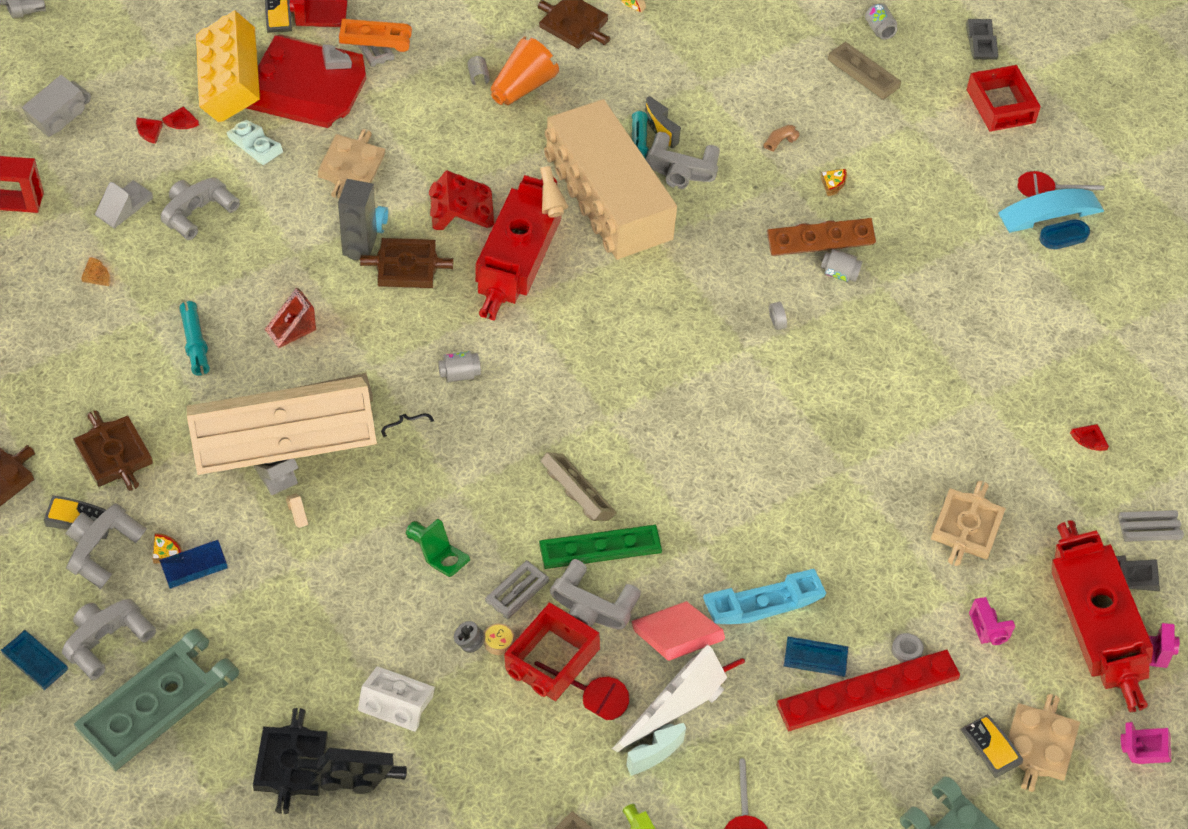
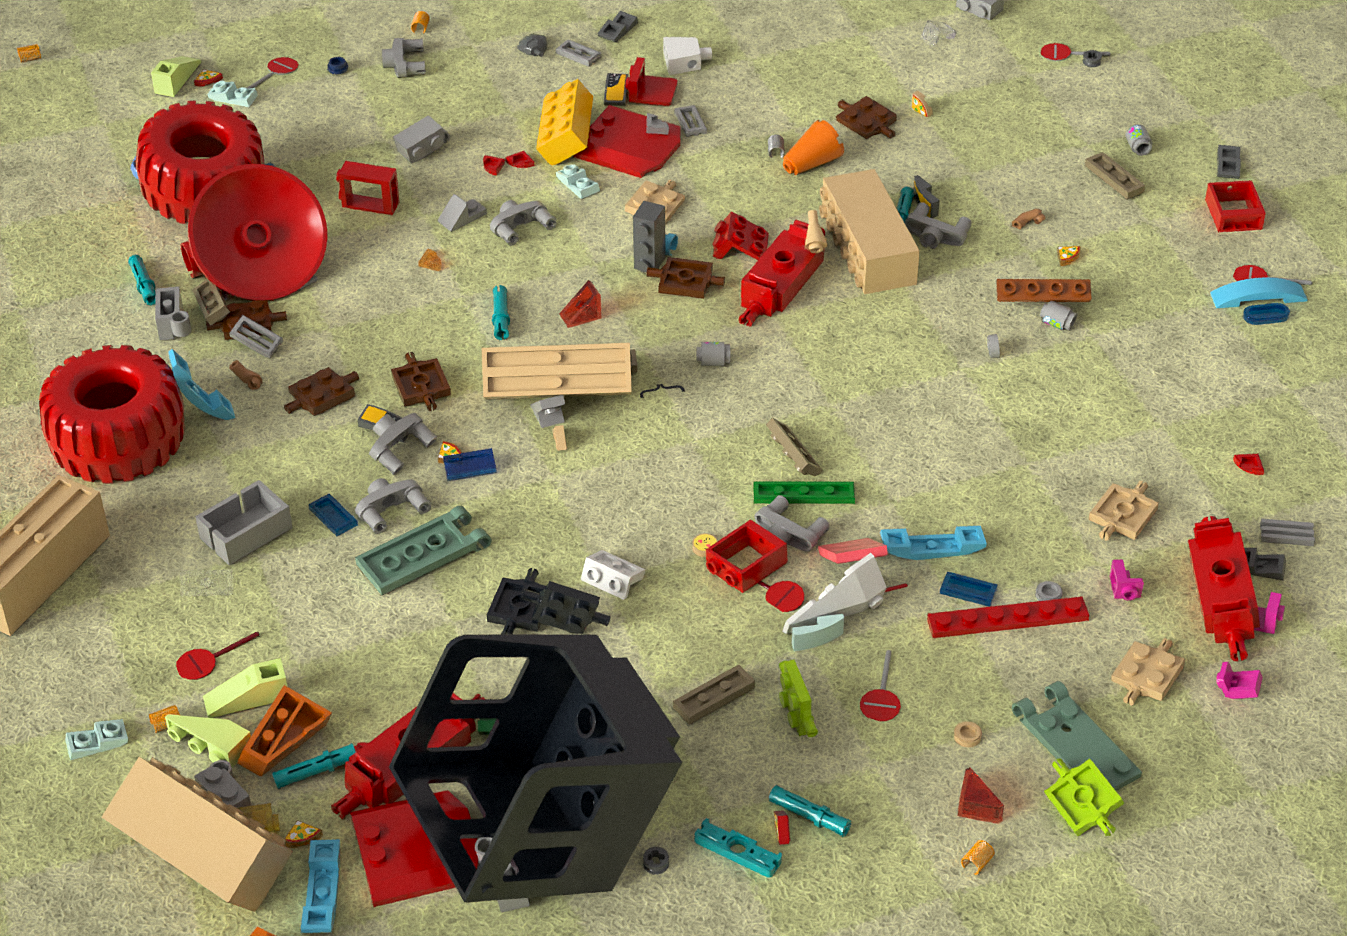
camera: 15 degrees right, 10 degrees down
(375, 34) = (693, 111): orange plate -> none
(436, 546) = (667, 474): green bracket -> none
(462, 635) = (681, 539): dark grey bush -> none
(501, 607) = (730, 516): light grey tile -> none
(992, 745) = (1104, 667): slope -> none

